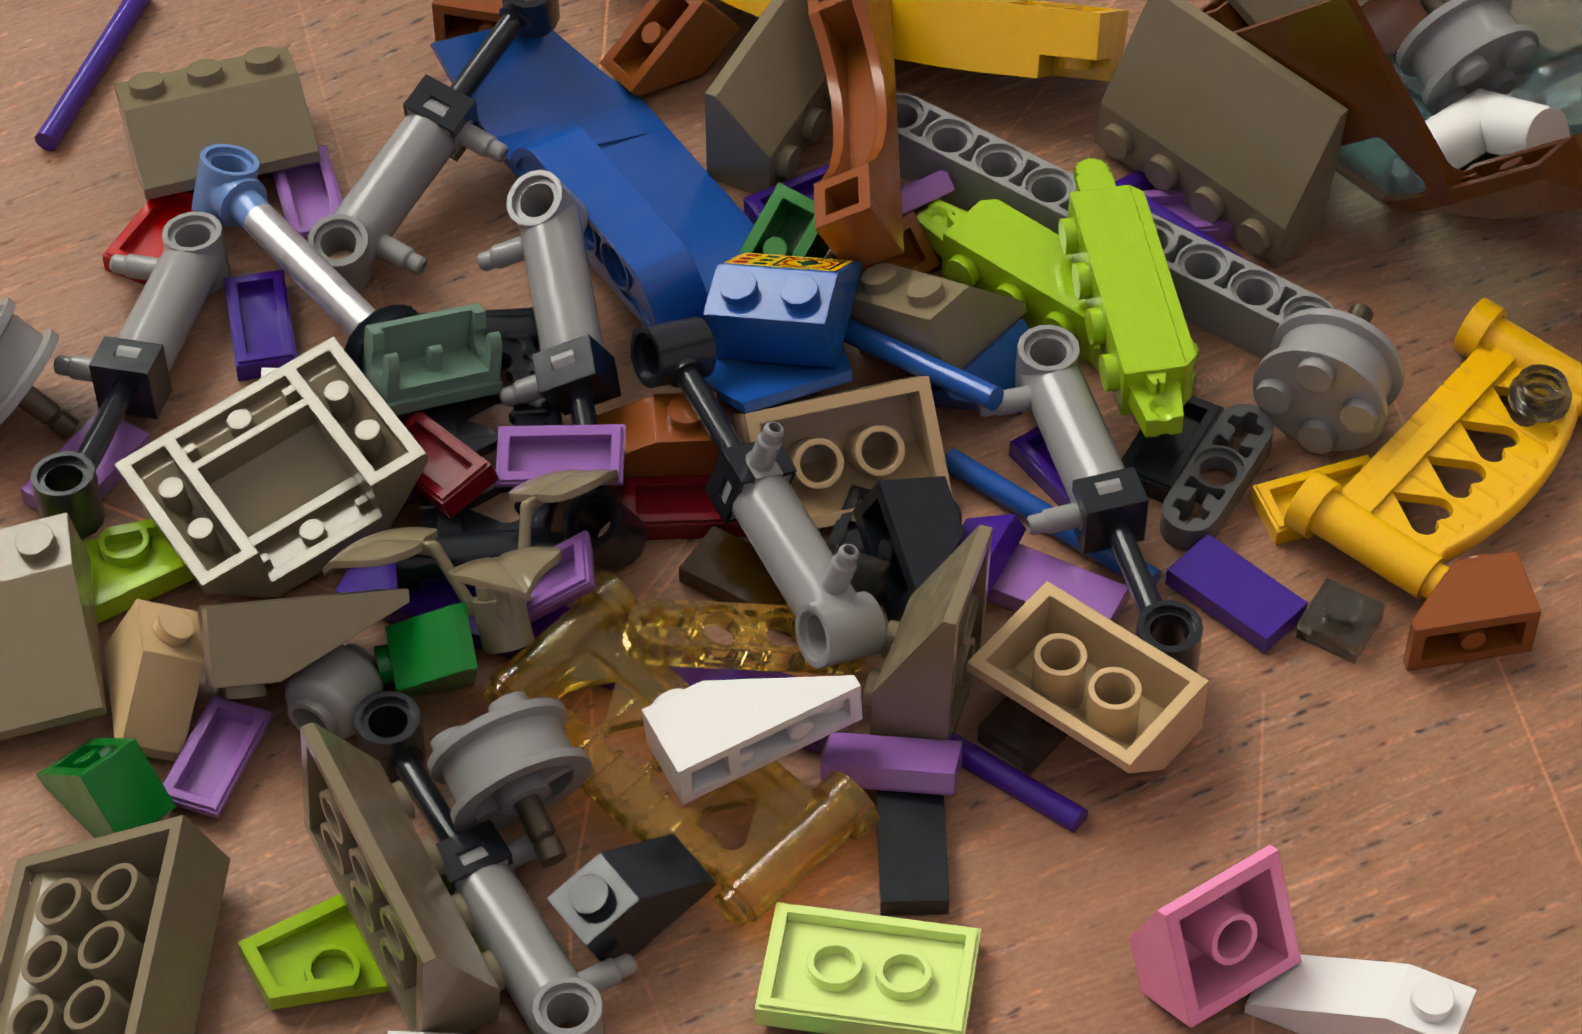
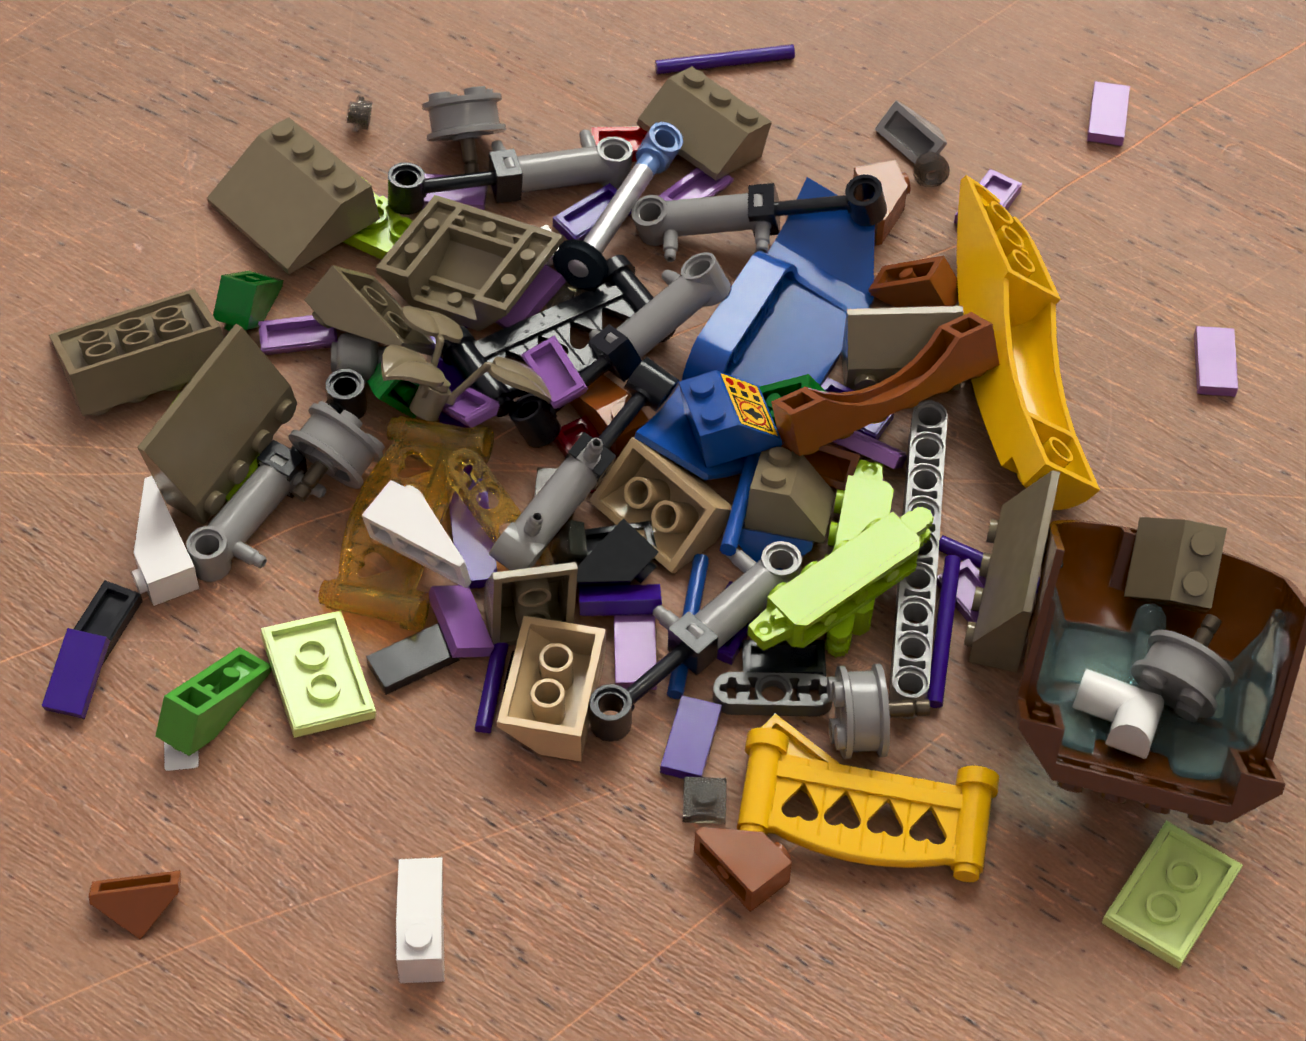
camera: 60 degrees right, 5 degrees up
(154, 676) = (296, 288): tan slope -> none
(433, 359) = (581, 285): sand green hinge -> none
(454, 470) = (520, 325): dark red tile -> none
(631, 895) = (294, 539): black slope -> none
(1218, 940) = (411, 819): bright pink slope -> none
(1540, 394) = (934, 820): clear smoke plate -> none

